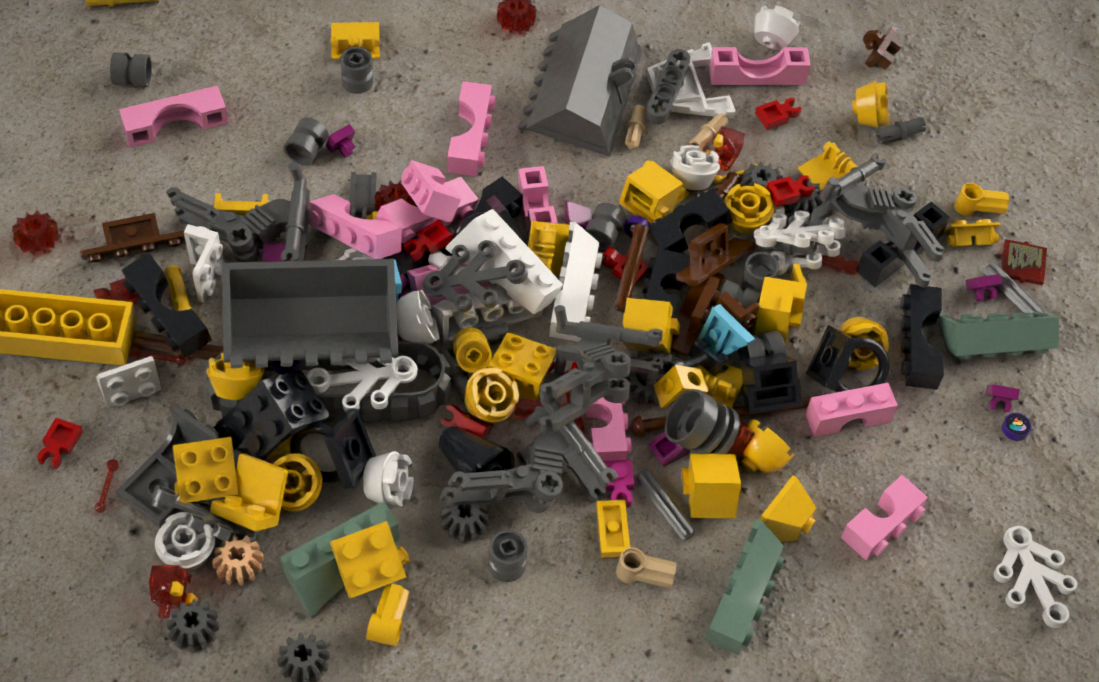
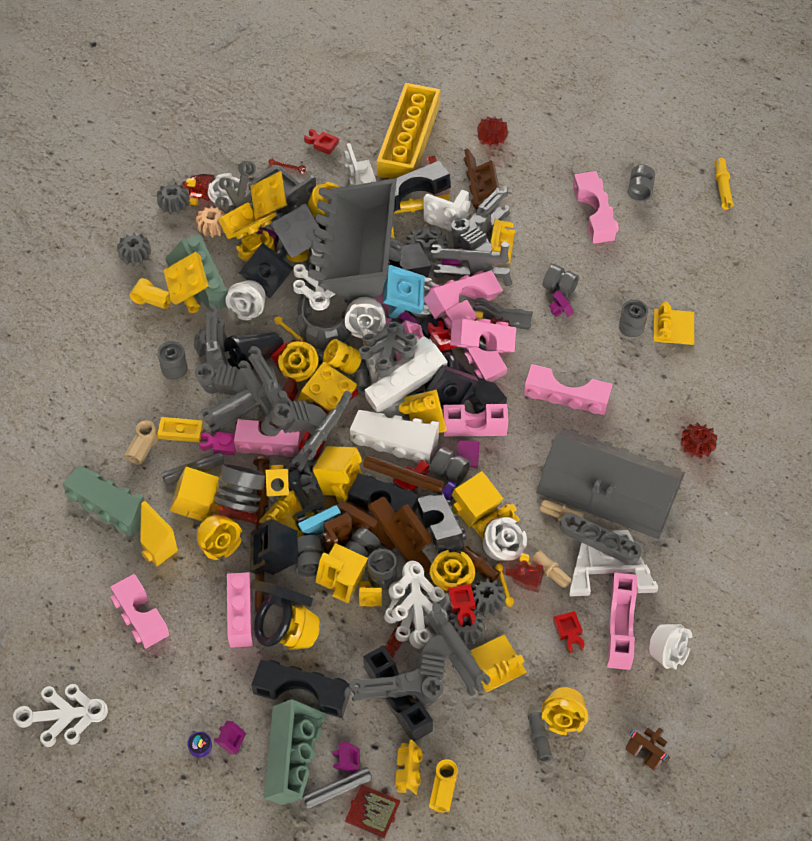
camera: 105 degrees right, 0 degrees up
(406, 447) = (278, 321): none -> yellow hinge

